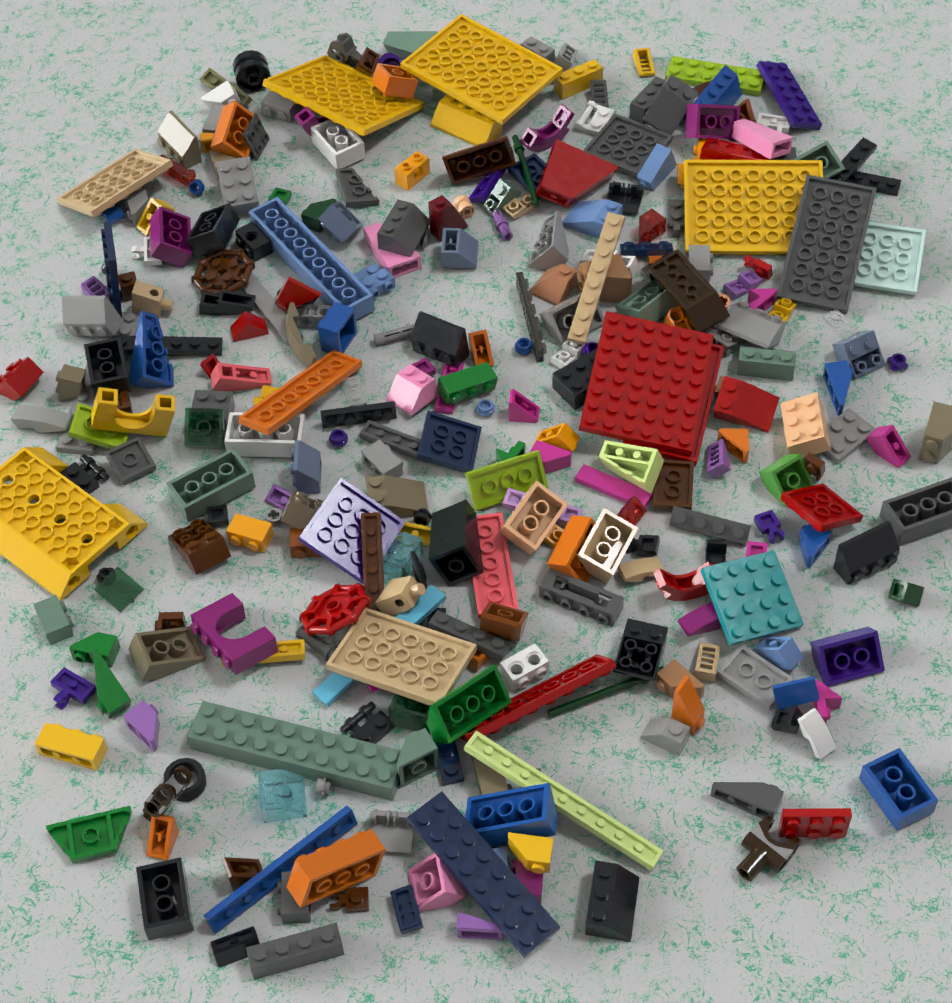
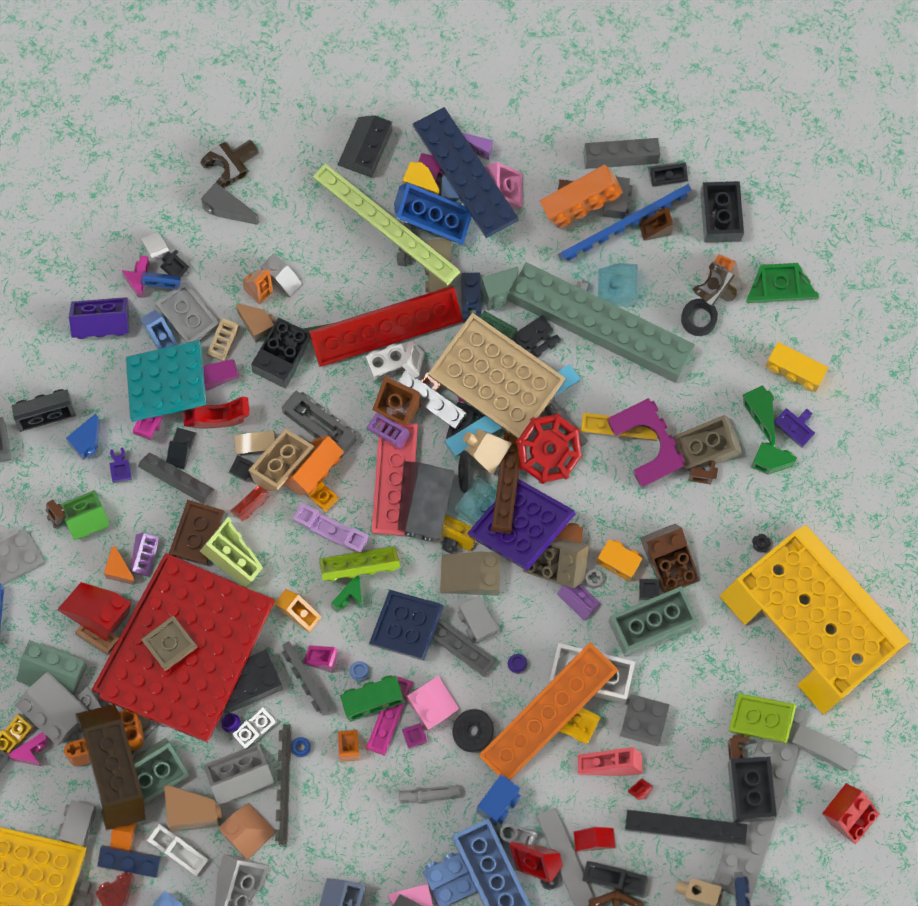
camera: 175 degrees left, 20 degrees up
(53, 619) = (811, 500): sand green brick -> none
(70, 382) = (792, 783): dark tan slope -> none
(81, 478) = (785, 669): black plate -> none
(90, 316) = (768, 871): light grey slope -> none
(119, 589) = (749, 523): clear green piece -> none
(130, 460) = (732, 674): dark grey plate -> none
(144, 723) = (731, 376): medium lavender slope -> none
(149, 359) = (705, 800): blue wedge -> none
(151, 422) = (753, 713): yellow arch -> none
(204, 428) = (654, 682): clear green slope -> none
(302, 351) = (546, 827): dark tan slope -> none
(306, 468) = (554, 618): sand blue slope -> none
(358, 414) = (483, 684): black plate -> none
(375, 389) = (483, 735): none -> black wheel
(392, 830) = (530, 240): light grey hinge -> none
(406, 909) = (529, 171): dark blue plate -> none
(439, 340) = (391, 758): black slope -> none
(467, 706) = (446, 318): green slope -> none
(498, 656) = (413, 359): none -> white tile
(504, 589) = (399, 436): none -> medium lavender slope
(533, 391) = (300, 672): none -> dark grey plate
(533, 518) = (344, 506): light nougat brick -> none
(552, 456) = (312, 589): dark pink slope -> none
(596, 278) = (202, 792): tan plate -> none
(611, 485) = (265, 554): dark pink tile -> none
(664, 371) = (169, 643): none -> dark tan plate
(741, 286) = (38, 787): medium lavender slope -> none
(760, 267) = (11, 799): red plate -> none
(805, 425) = (45, 565): light nougat brick -> none
(815, 823) = (185, 166): red plate -> none
(821, 507) = (66, 465): red plate -> none
(898, 789) = (106, 184): blue brick -> none
(906, 592) = (22, 368): dark green panel -> none

